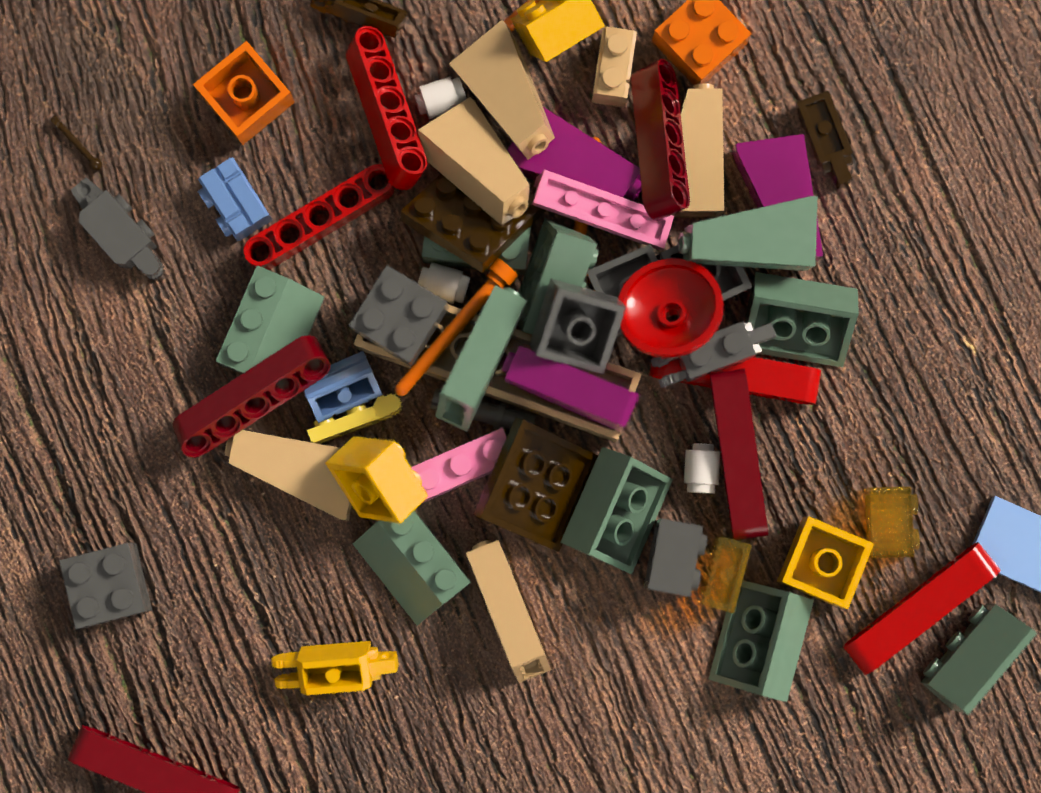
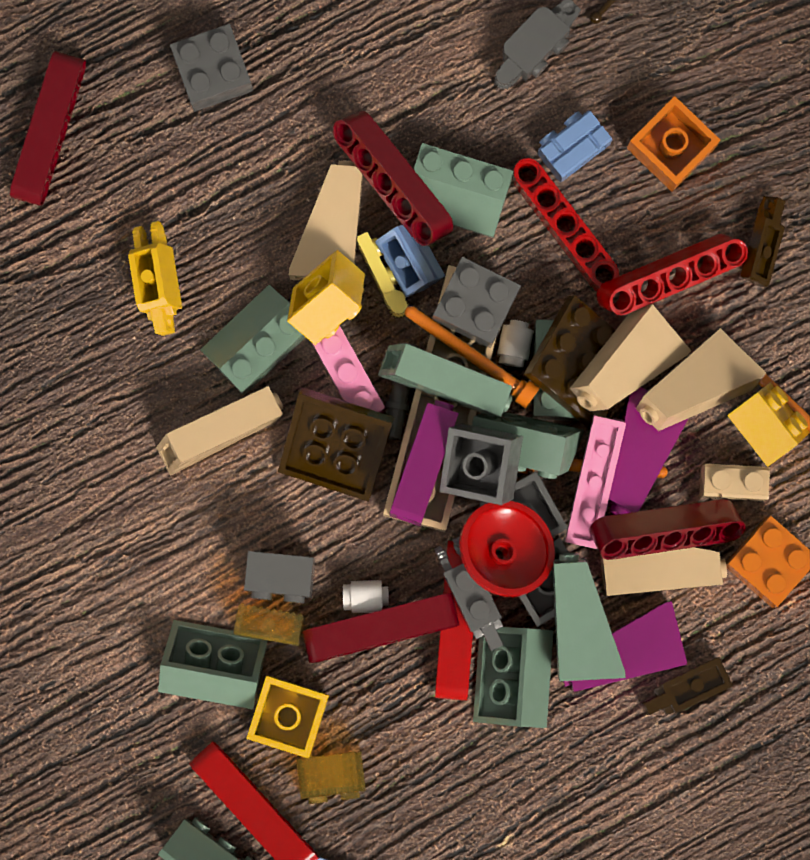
camera: 85 degrees right, 0 degrees up
(439, 96) = (689, 324): white brick -> none
(617, 510) = (319, 521): sand green slope -> none

